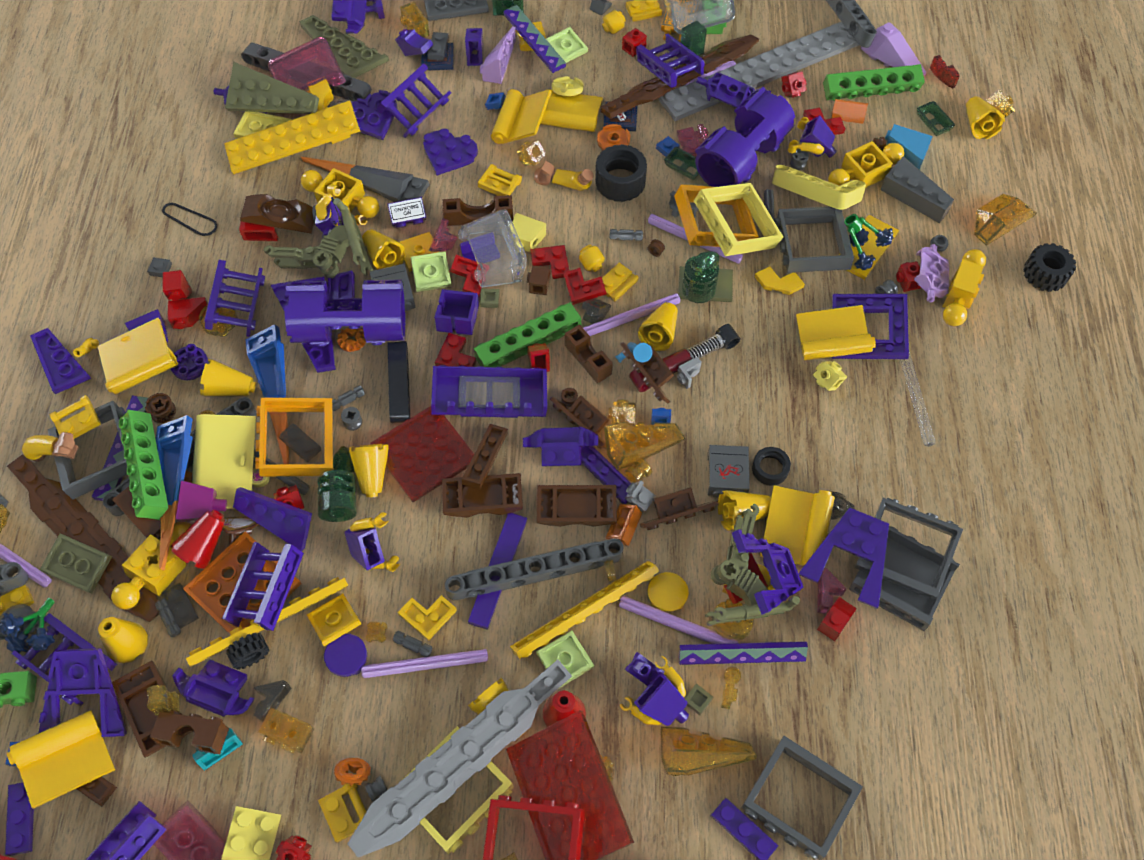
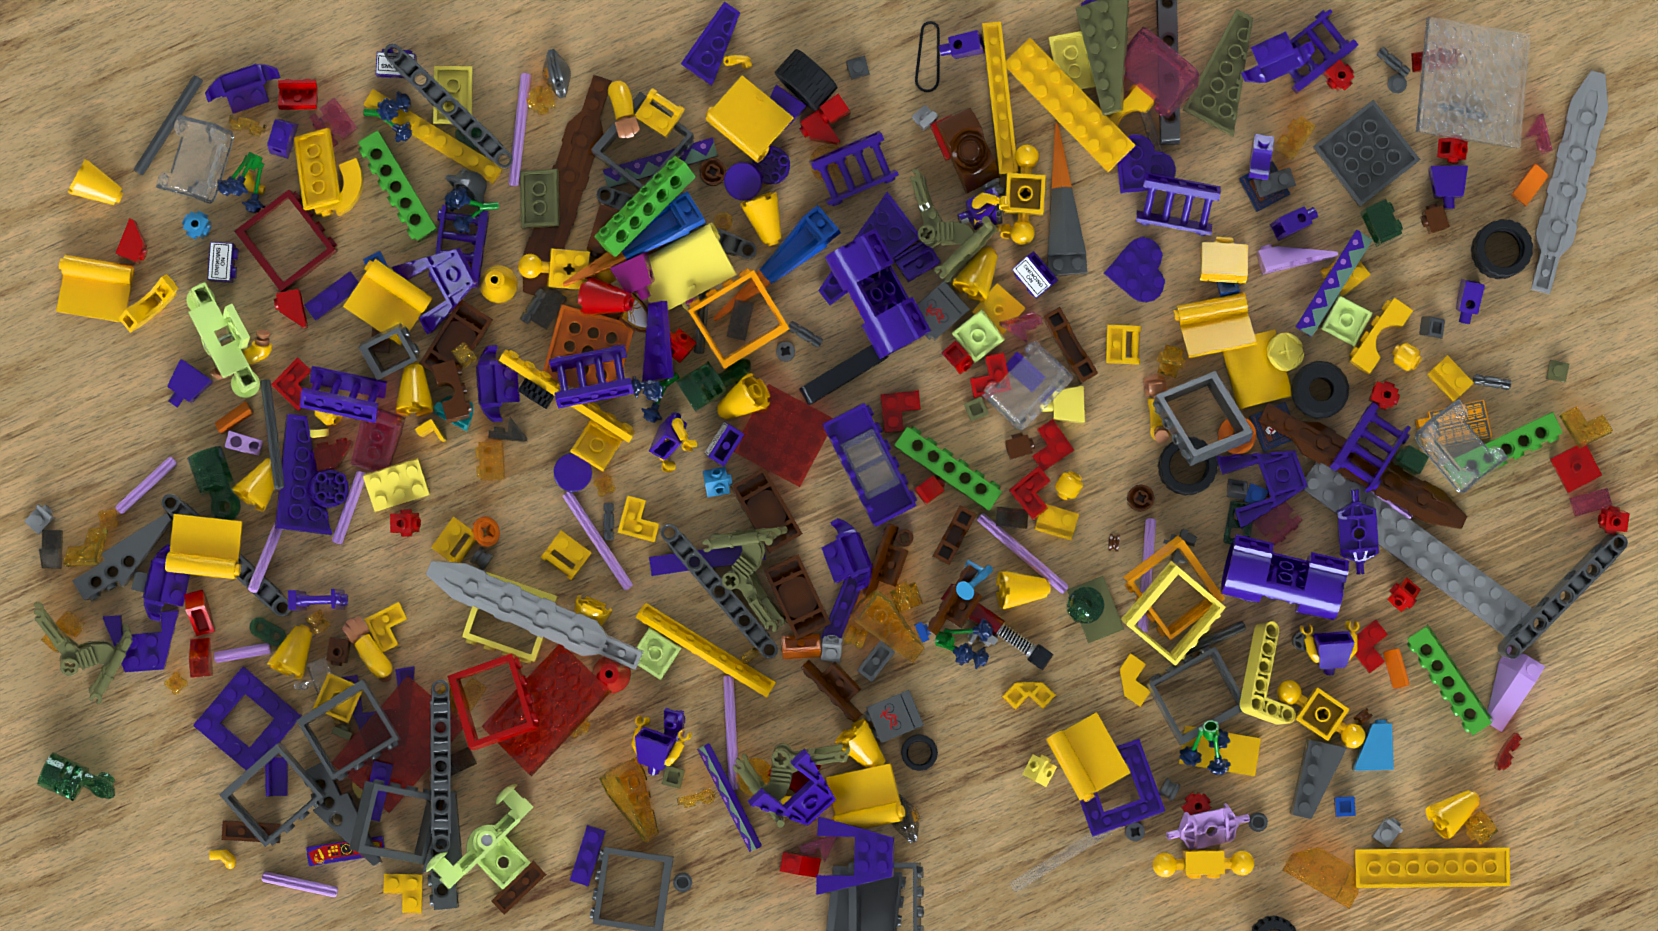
camera: 65 degrees right, 25 degrees up
(103, 753) = (372, 359): none -> dark grey window
(134, 293) = (806, 79): none -> black tyre
(169, 777) = (414, 392): none -> yellow cone
(183, 384) = (743, 181): none -> dark purple tile
(197, 184) = (971, 45): none -> dark purple torso
(212, 774) = (428, 427): none -> yellow panel
(233, 236) = (925, 117): none -> light grey bracket
(252, 181) = (999, 97): none -> yellow plate
(312, 535) = (654, 391): none -> dark blue plant
(400, 501) = (724, 443): none -> dark purple brick
(418, 696) = (571, 550): none -> yellow plate
(431, 524) = (717, 481): none -> dark azure brick
(433, 291) = (958, 357): none -> red bracket
(456, 312) = (940, 390): dark purple piece -> none
(477, 94) = (1224, 261): none -> yellow piece
(484, 456) = (803, 494): reddish brown plate -> none
(523, 526) = (743, 572): none -> olive piece
(584, 129) = (1226, 403): none -> dark grey window
(598, 42) = (1366, 355): none -> yellow arch
(608, 75) = (1338, 385): none -> black tyre
(625, 234) = (1118, 504): dark grey axle -> none
(629, 215) = (1140, 498): none -> reddish brown wheel
(656, 153) = (1237, 489): none -> dark grey plate
(662, 122) = (1281, 475): none -> dark purple wing
(668, 591) = (755, 712): yellow dish -> none
(669, 465) = (876, 661): none -> dark grey plate
(700, 381) = (964, 652): none -> dark blue plant
(751, 364) = (1021, 690): none -> yellow tile
(812, 741) = (682, 882): none -> dark grey plate
(916, 333) = (1132, 830): none -> dark grey wheel
(940, 118) = (1437, 768): clear green piece -> none
(949, 182) = (1344, 806): none -> blue plate
(979, 164) = (1387, 831): none -> light grey bracket
(1021, 148) = (1432, 867): none -> yellow plate

